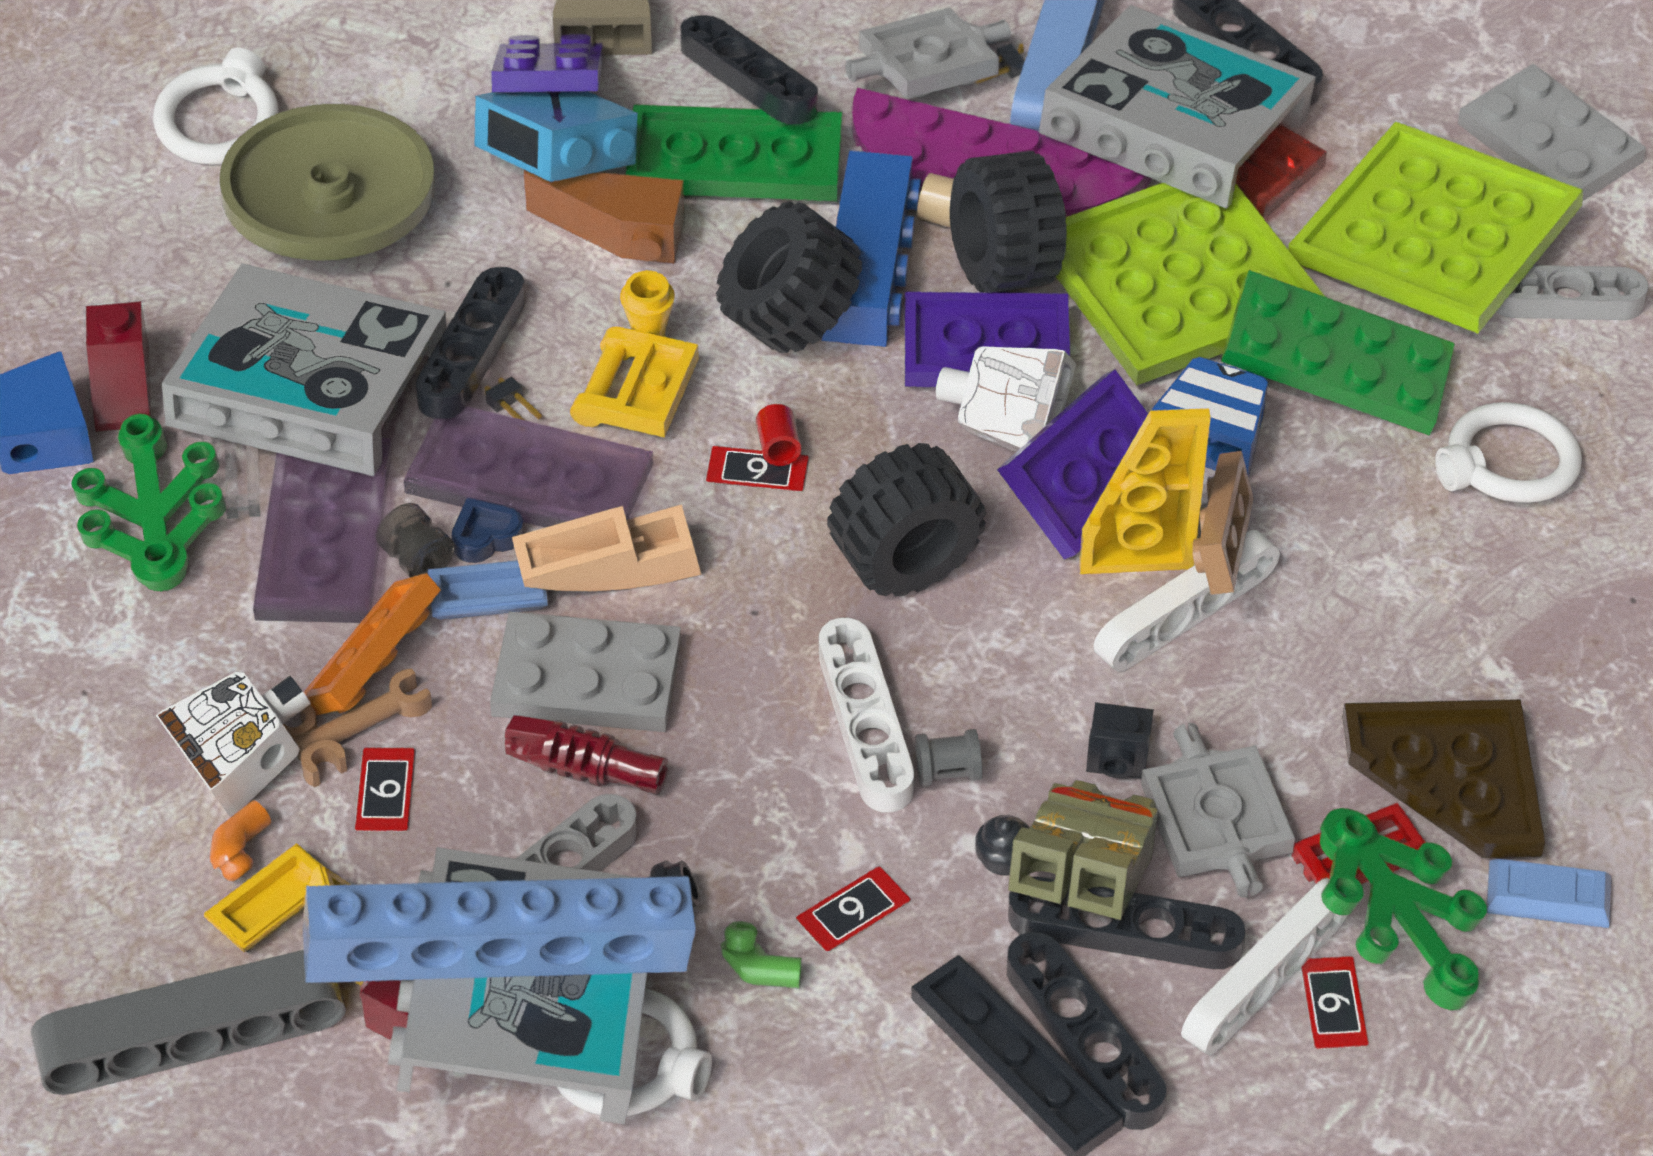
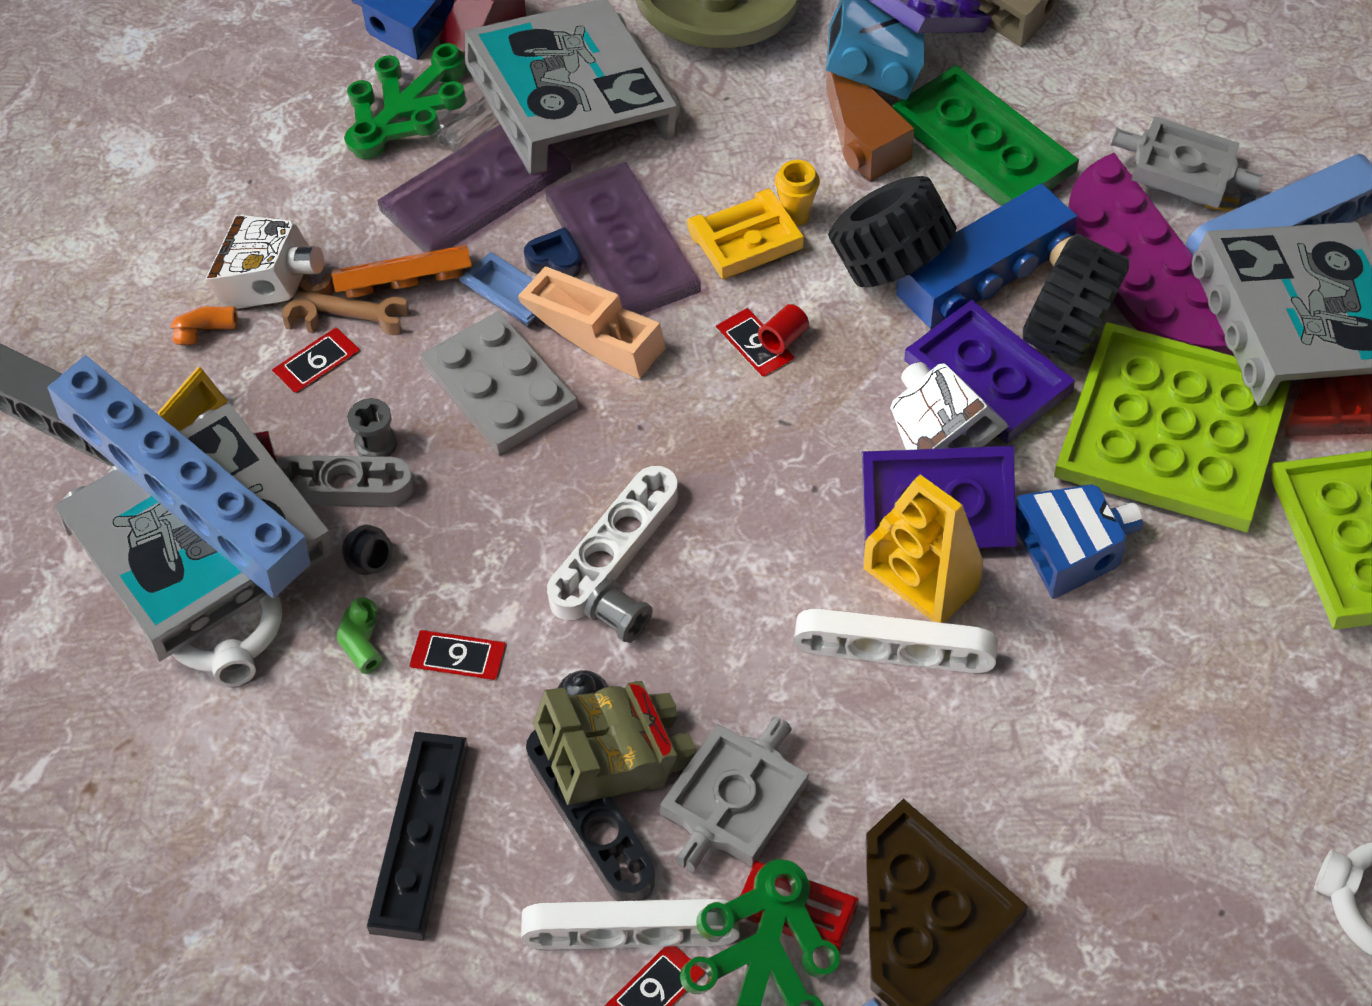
camera: 50 degrees right, 5 degrees up
(264, 899) = (169, 368): yellow tile -> none
(420, 544) = (500, 228): clear smoke wheel -> none
(459, 339) = (634, 152): black beam -> none
(505, 394) = (668, 185): black piece -> none
(549, 784) = (365, 423): none -> dark grey bush
(584, 754) = (428, 429): dark red hinge -> none
(749, 69) = (1053, 91): black beam -> none
(906, 519) = (765, 437): black tyre -> none
(1091, 1026) = (470, 854): black beam -> none
(1119, 740) = (738, 694): black bracket -> none
(1224, 523) = (957, 607): medium nougat plate -> none
(1338, 352) = (1211, 563): green plate -> none
(1465, 465) = (1206, 715): white piece -> none

